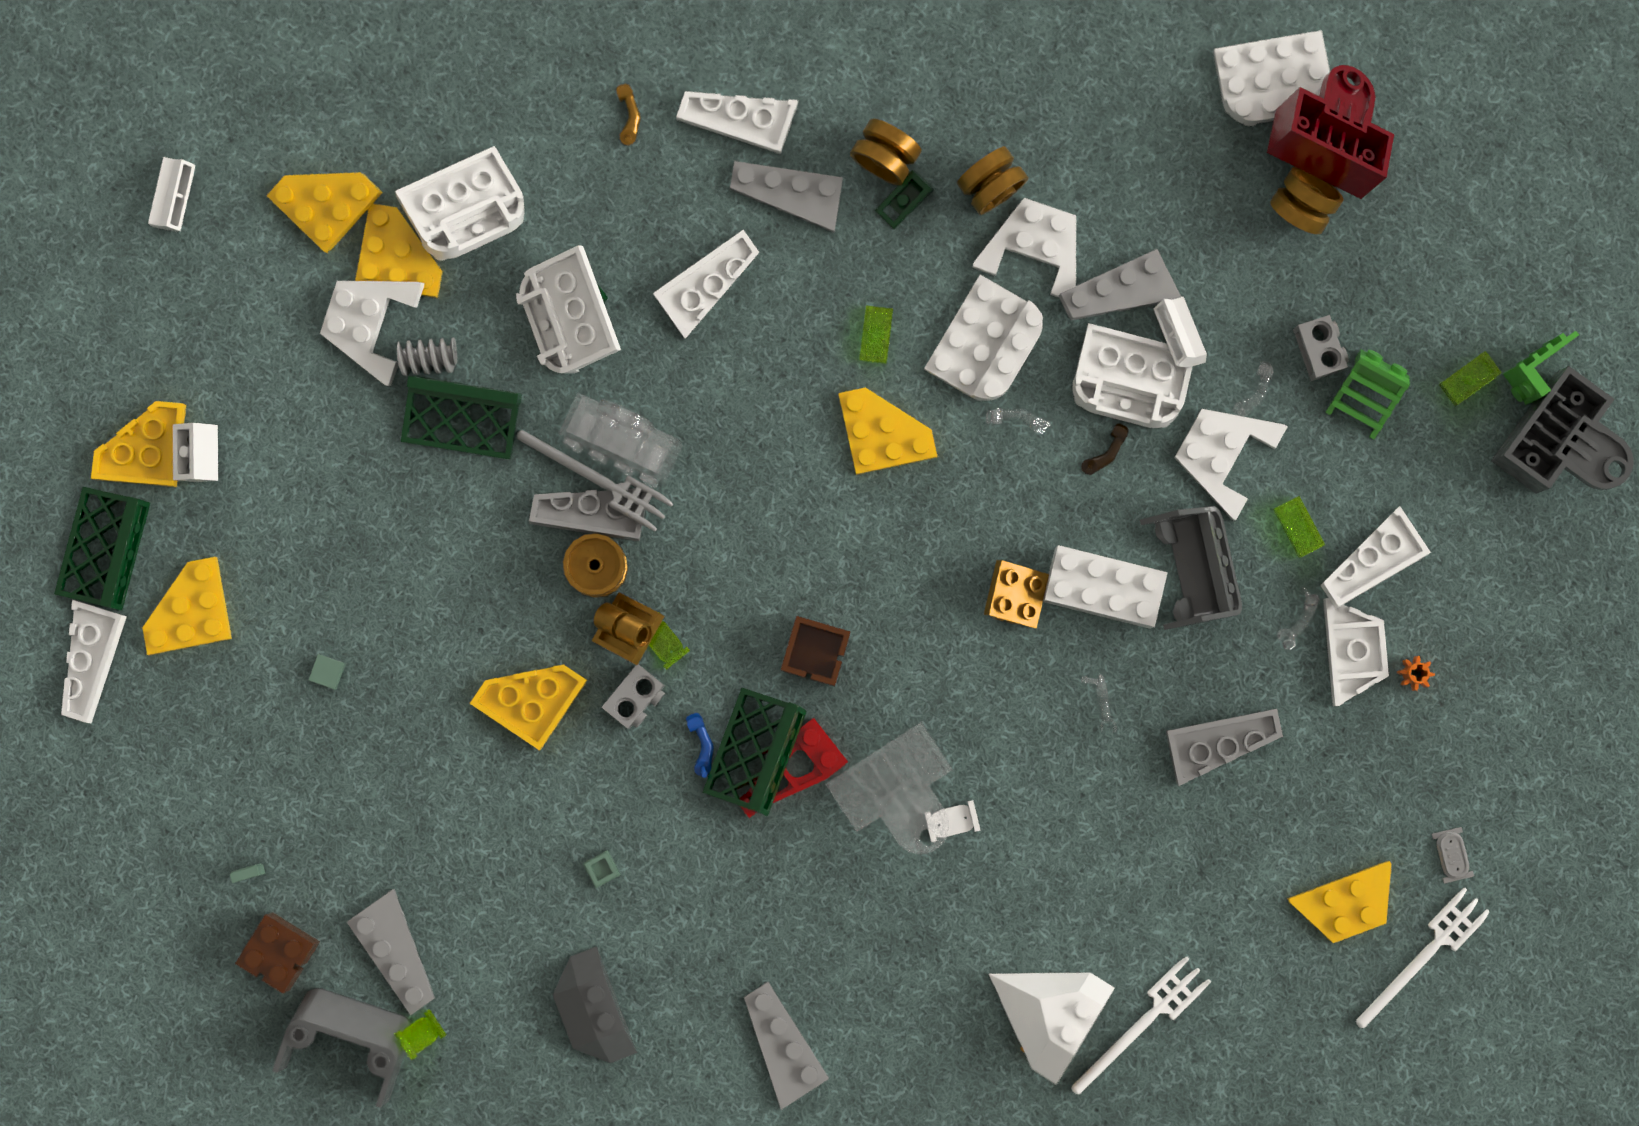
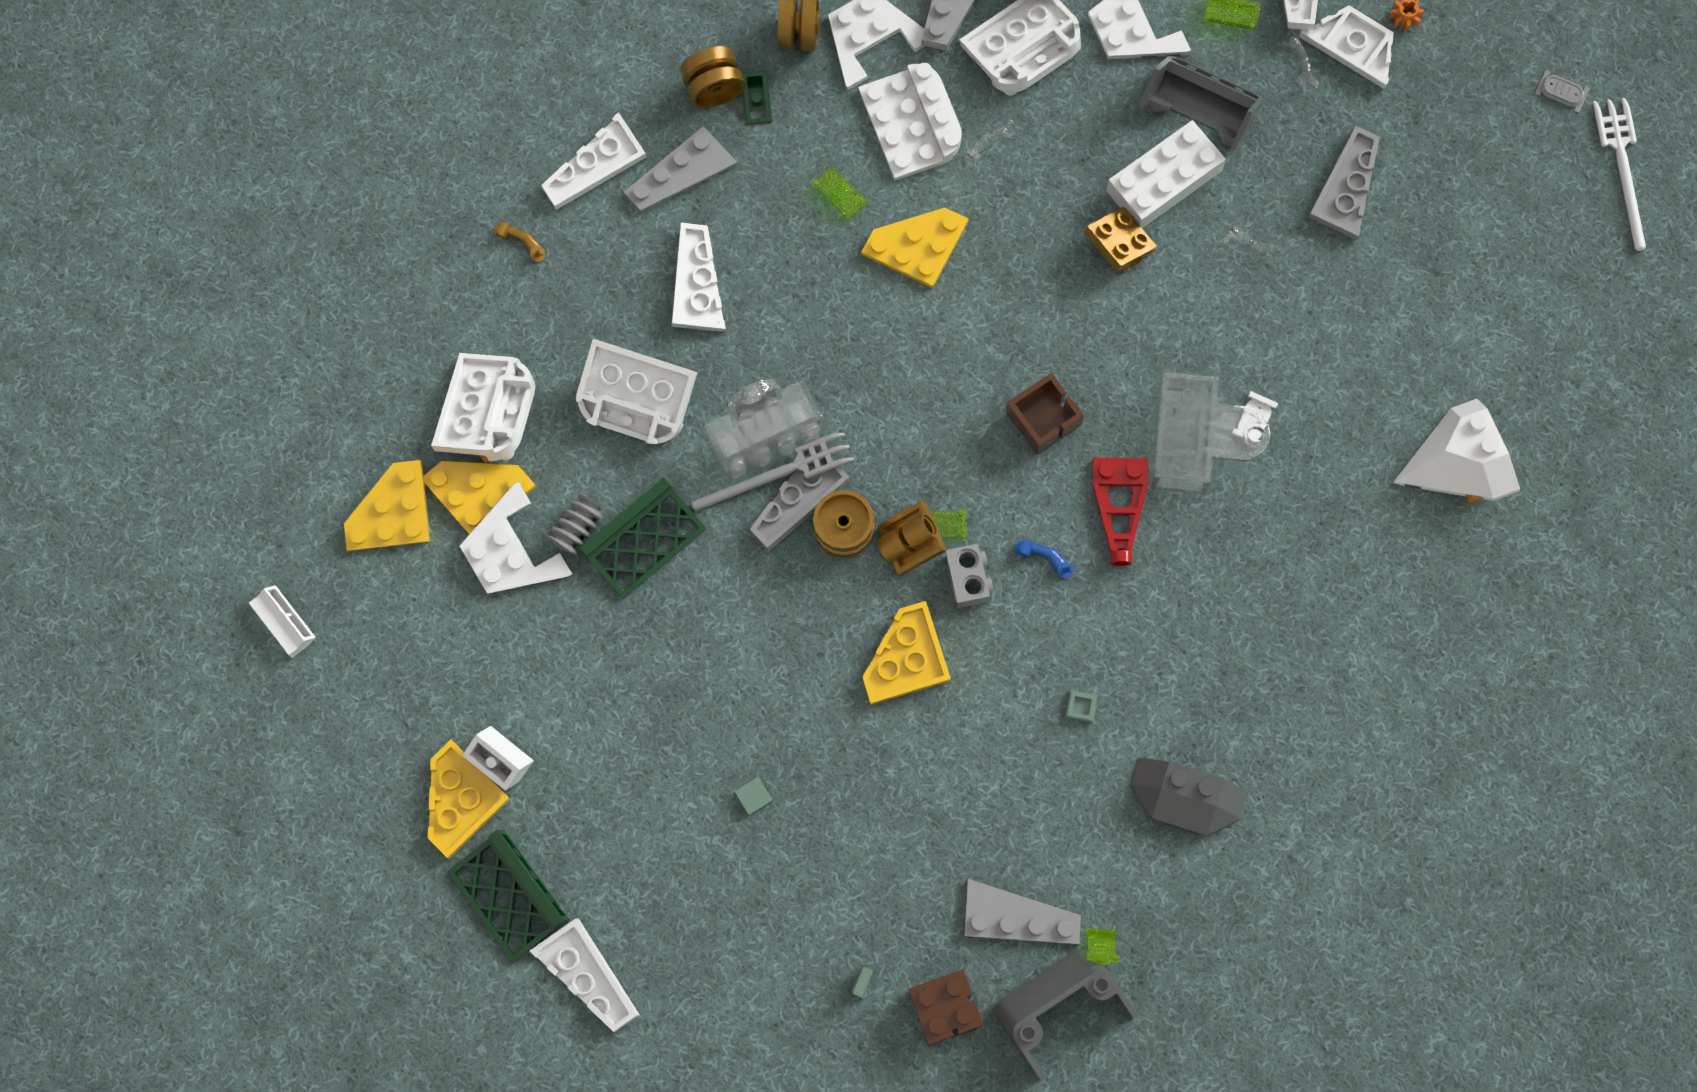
camera: 45 degrees left, 10 degrees down
(190, 611) = (616, 866): yellow plate -> none
(777, 753) = (1100, 501): dark green fence -> none
(785, 1051) = (1339, 678): light grey wing -> none
(1096, 463) = (1067, 115): dark brown piece -> none
(1159, 1006) = (1516, 378): white piece -> none
(1348, 904) = (1542, 188): yellow wing -> none

